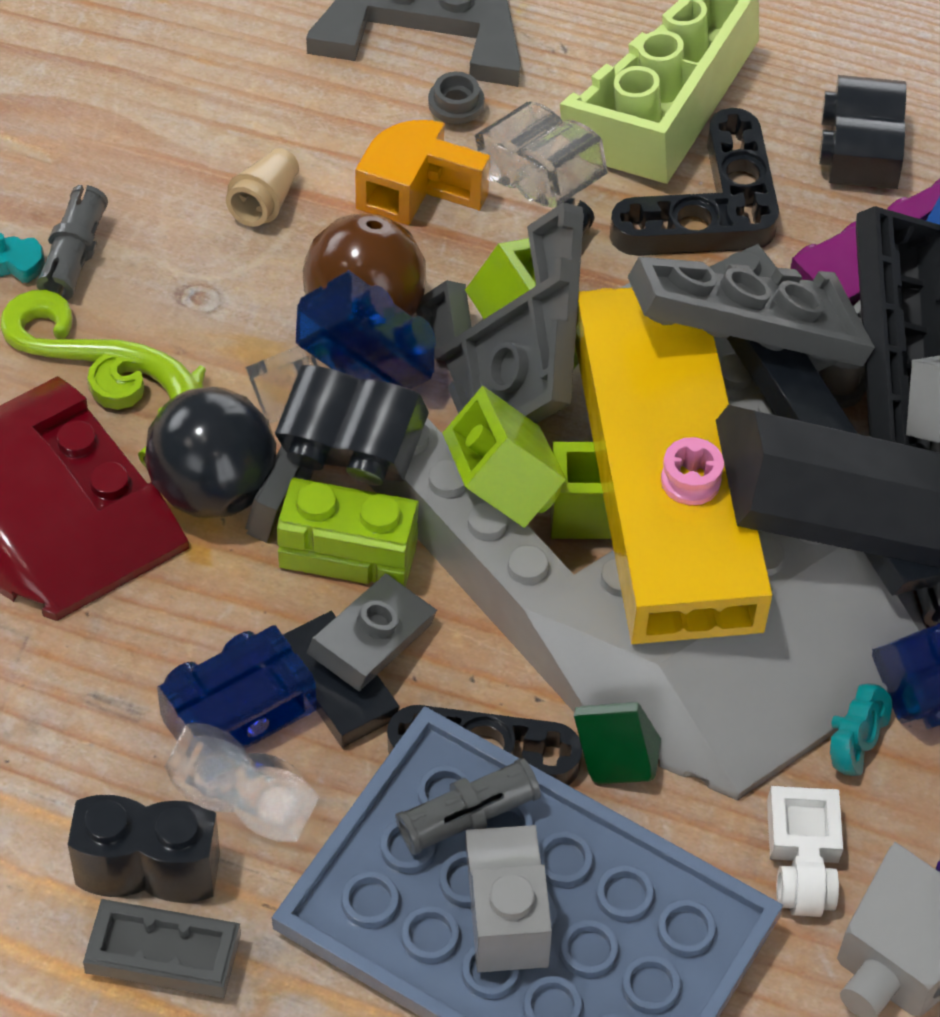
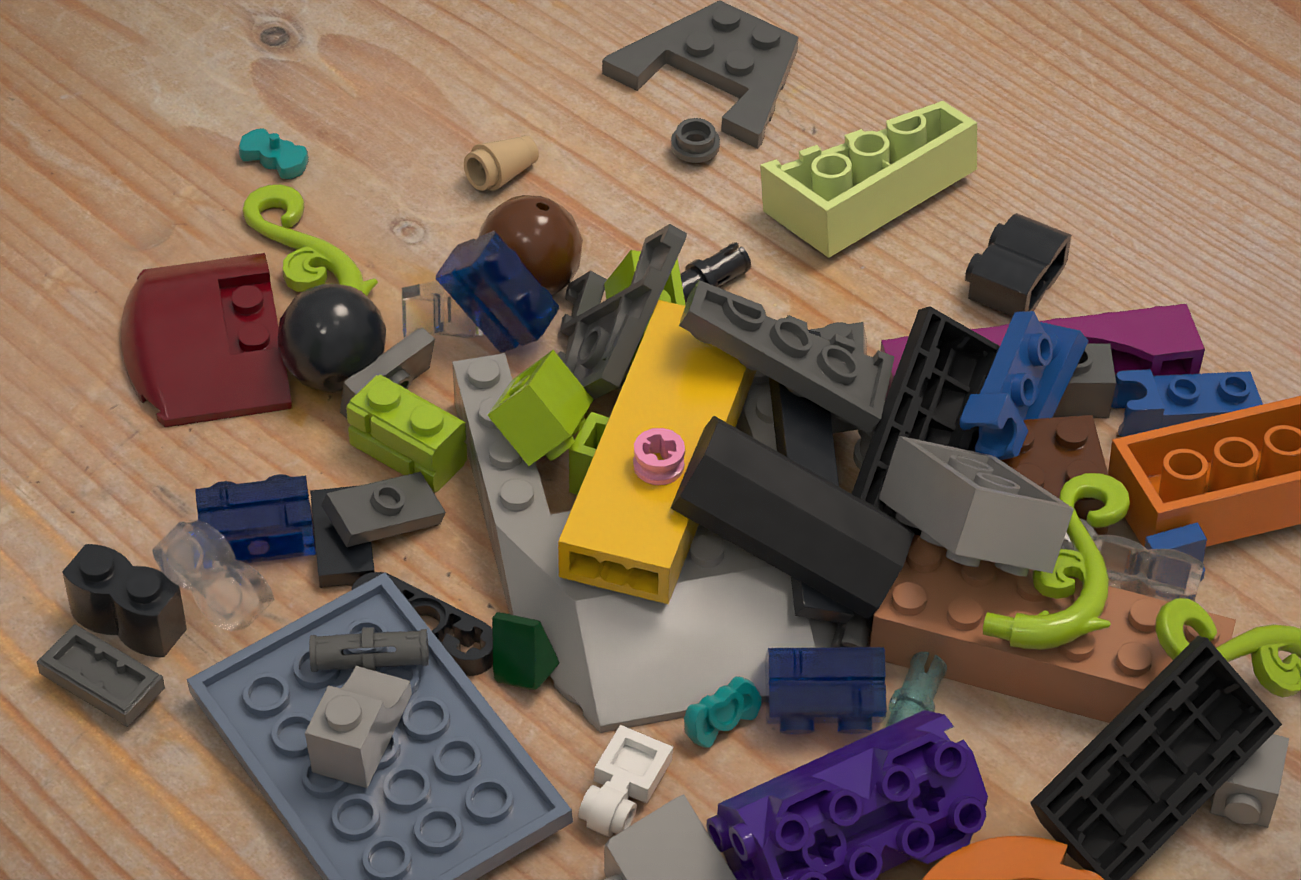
camera: 25 degrees right, 5 degrees down
(73, 241) = (331, 157): dark grey pin -> none
(351, 424) = (438, 347): black brick -> none
(416, 161) = (625, 178): light orange brick -> none
(542, 154) = (729, 201): clear brick -> none
(721, 210) = (860, 292): black beam -> none

